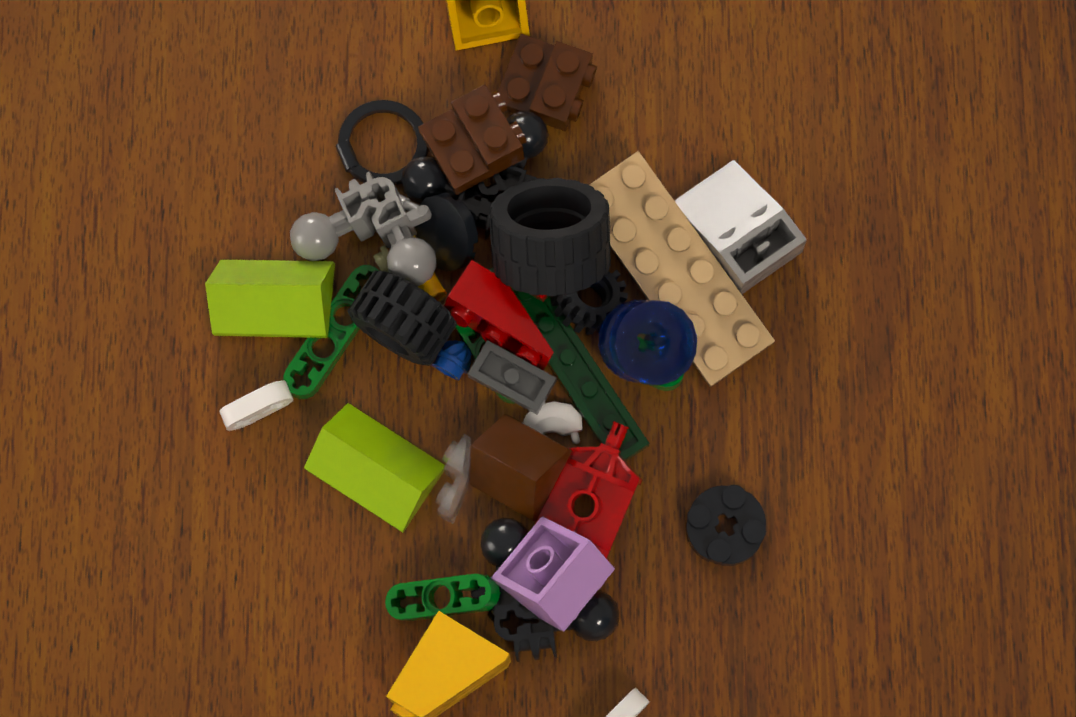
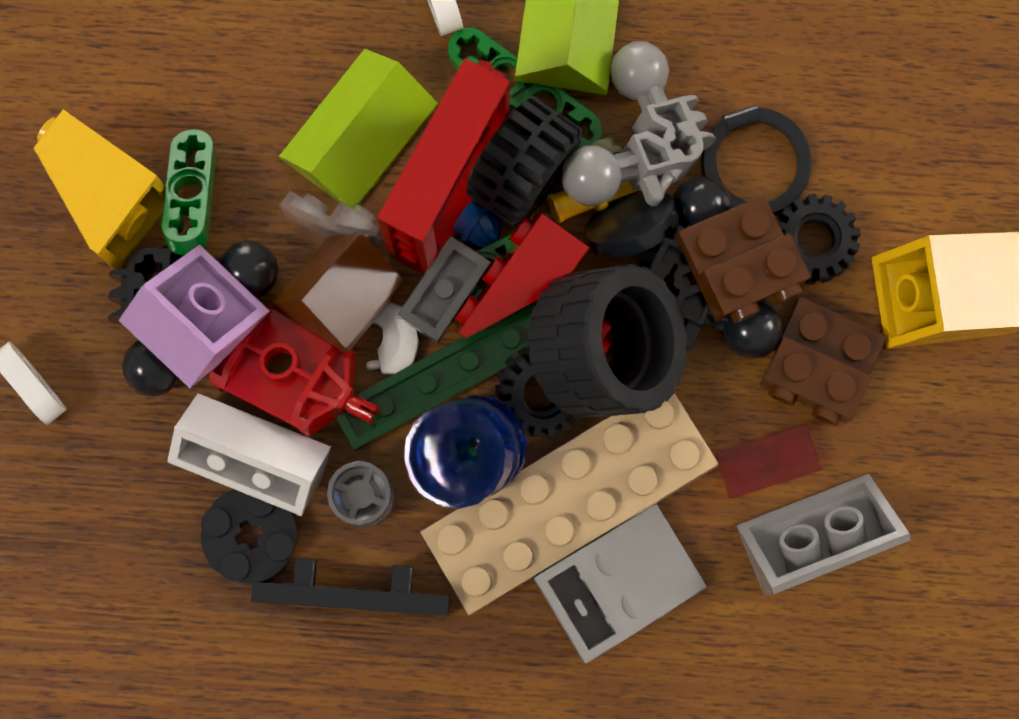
camera: 90 degrees right, 5 degrees up
(419, 369) = (434, 182): none -> red window
(434, 73) = (836, 221): none -> black tyre
(629, 118) = (768, 461): none -> clear red plate
(661, 525) = (248, 454): none -> white brick
(686, 74) = (821, 534): none -> light grey slope
(686, 432) = (360, 494): none -> flat silver wheel
(770, 471) = (305, 593): none -> black hinge

